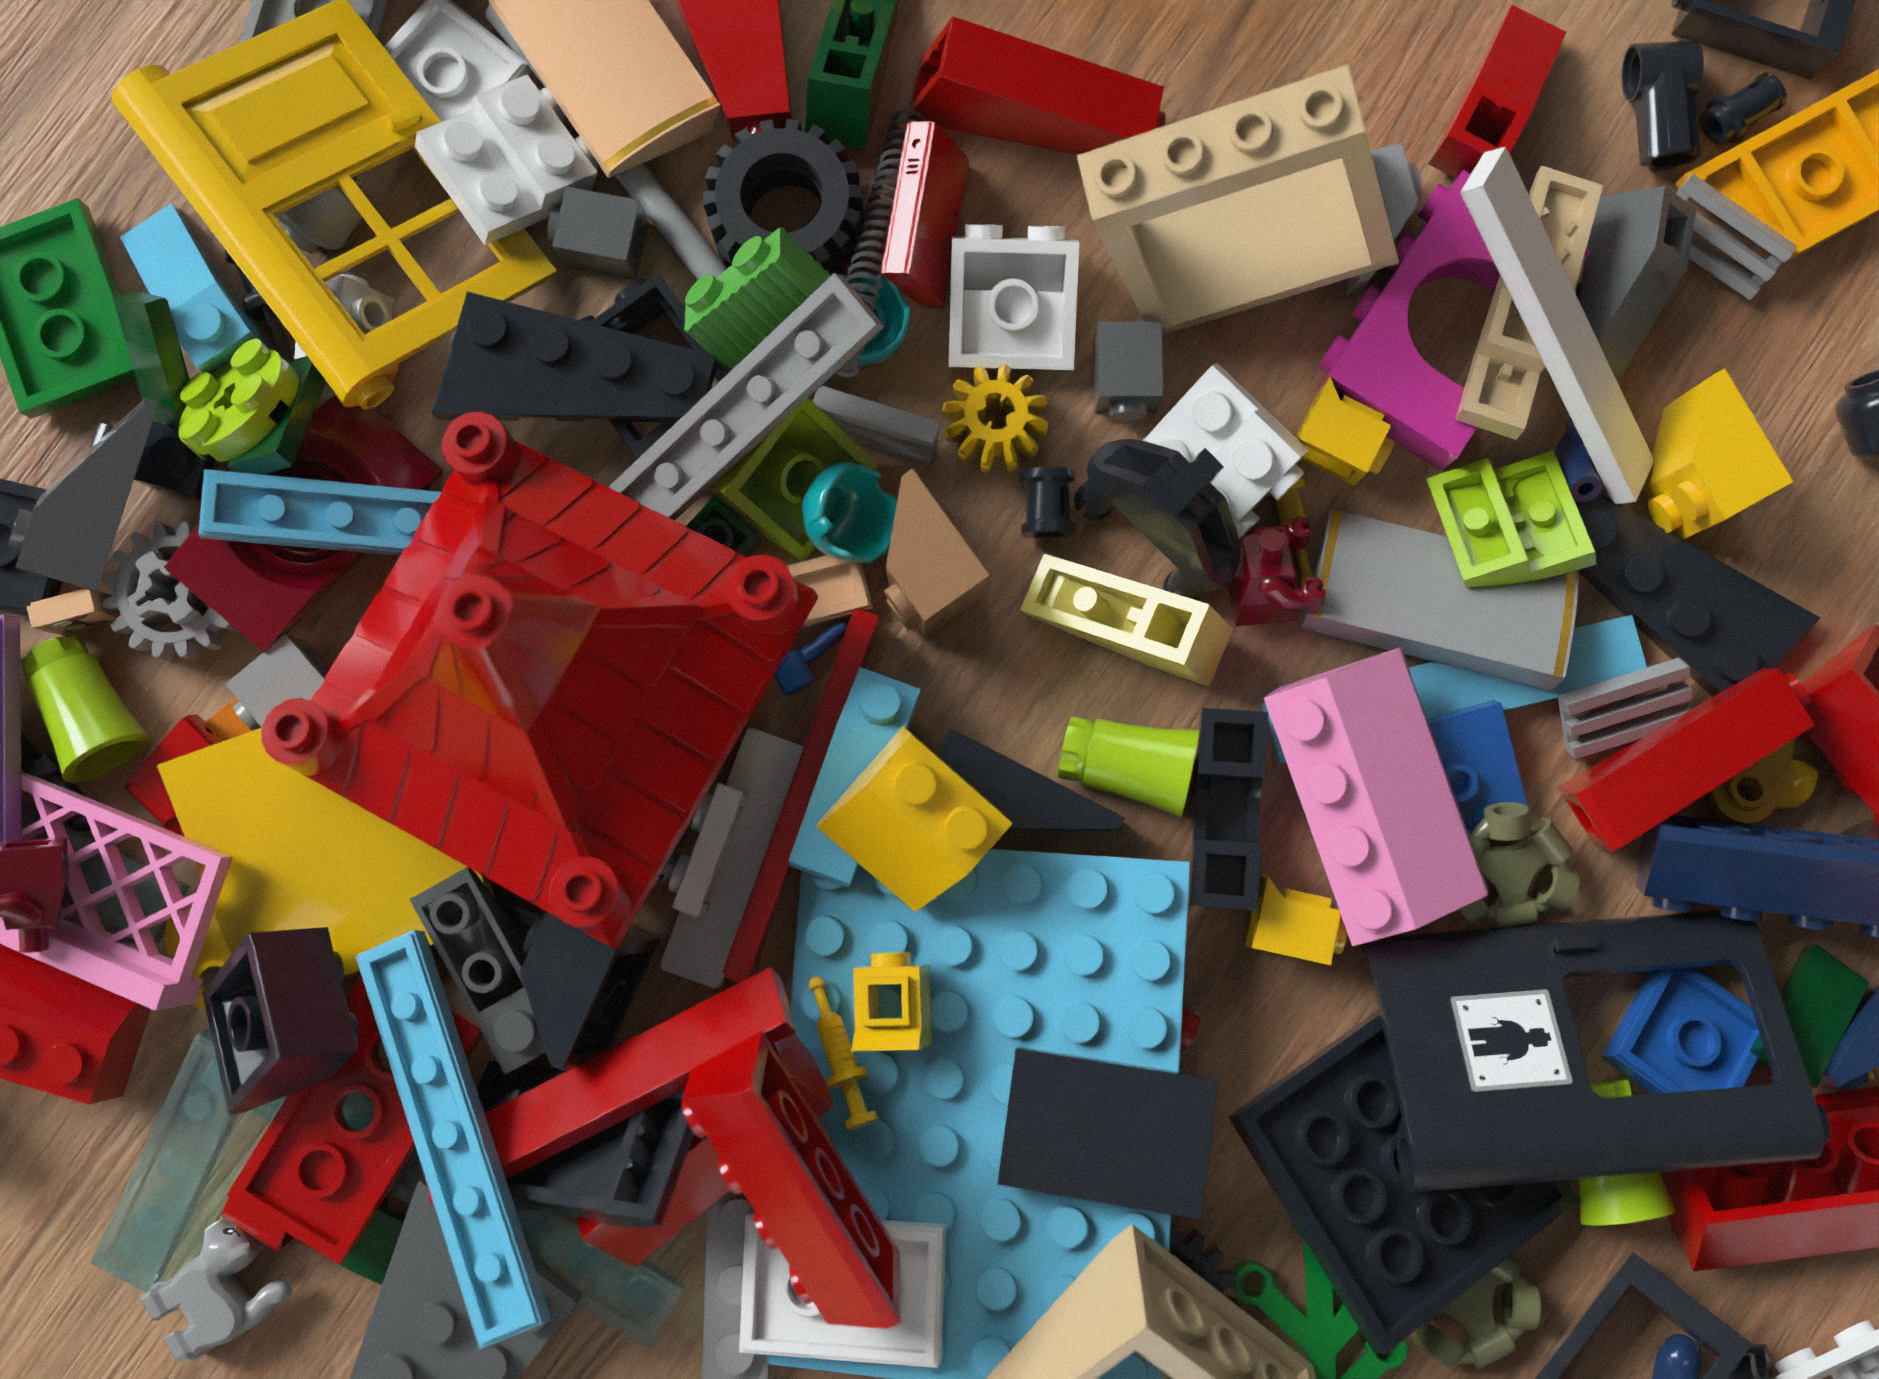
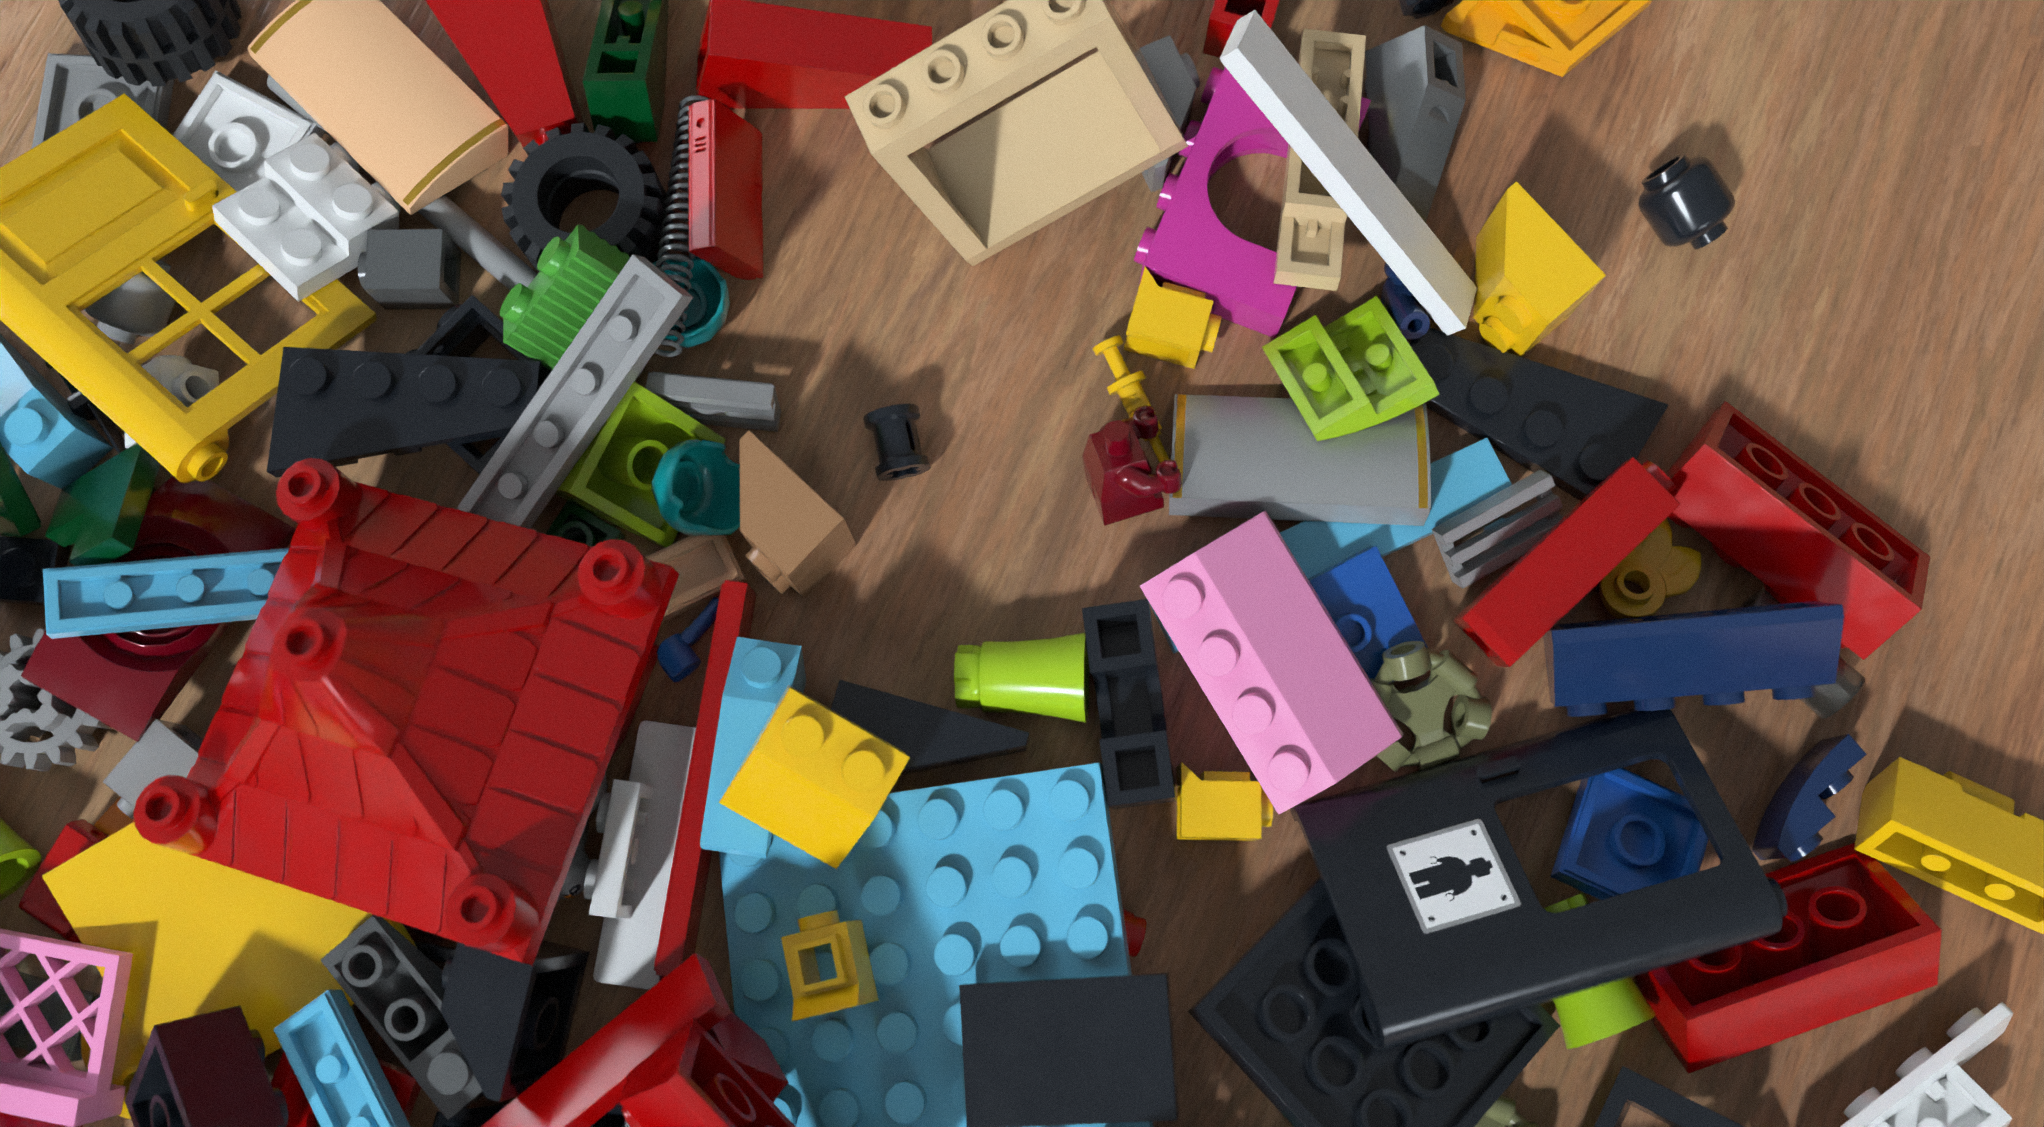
camera: 10 degrees left, 5 degrees down
(232, 406) = (67, 506): lime plate -> none
(841, 1059) = (789, 1035): yellow piece -> none
(1009, 398) = (812, 387): yellow gear -> none
(1013, 298) = (825, 254): white plate -> none
(1128, 369) = (950, 298): dark grey brick -> none
(1129, 618) = (999, 538): light yellow slope -> none
(1170, 506) = (1016, 420): black connector -> none
(1241, 435) = (1054, 365): white plate -> none
(1740, 219) = (1513, 48): light grey tile -> none
(1819, 1005) = (1752, 783): dark green tile -> none

